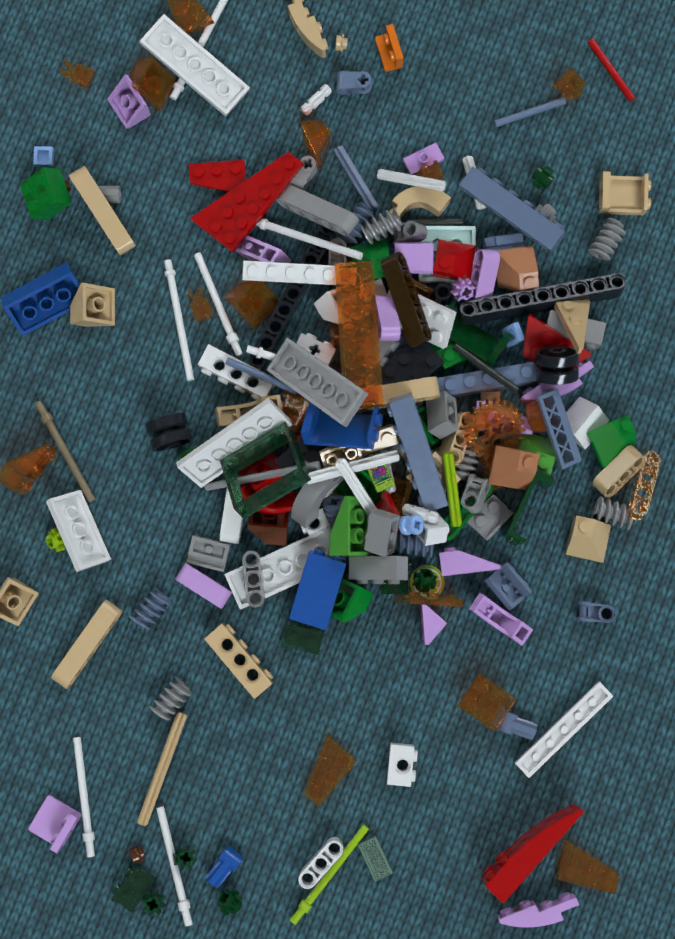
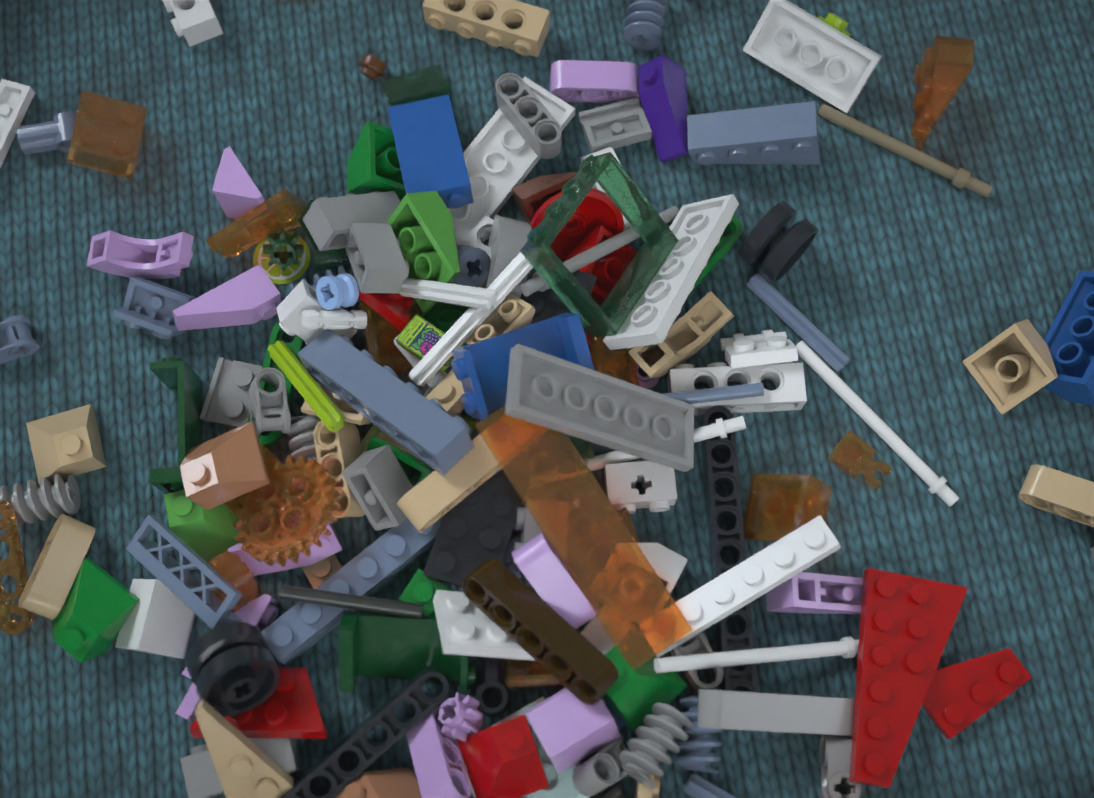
camera: 145 degrees right, 10 degrees down
(141, 501) = (756, 136): none -> sand blue wedge
(176, 545) = (665, 105): none -> dark purple slope
(182, 389) = (798, 322): none -> sand blue axle
(215, 380) = (758, 349): none -> white plate
(231, 337) = (778, 440): white bar -> none
(319, 666) = (372, 67): none -> reddish brown plate
(515, 330) = (339, 701): light blue plate -> none

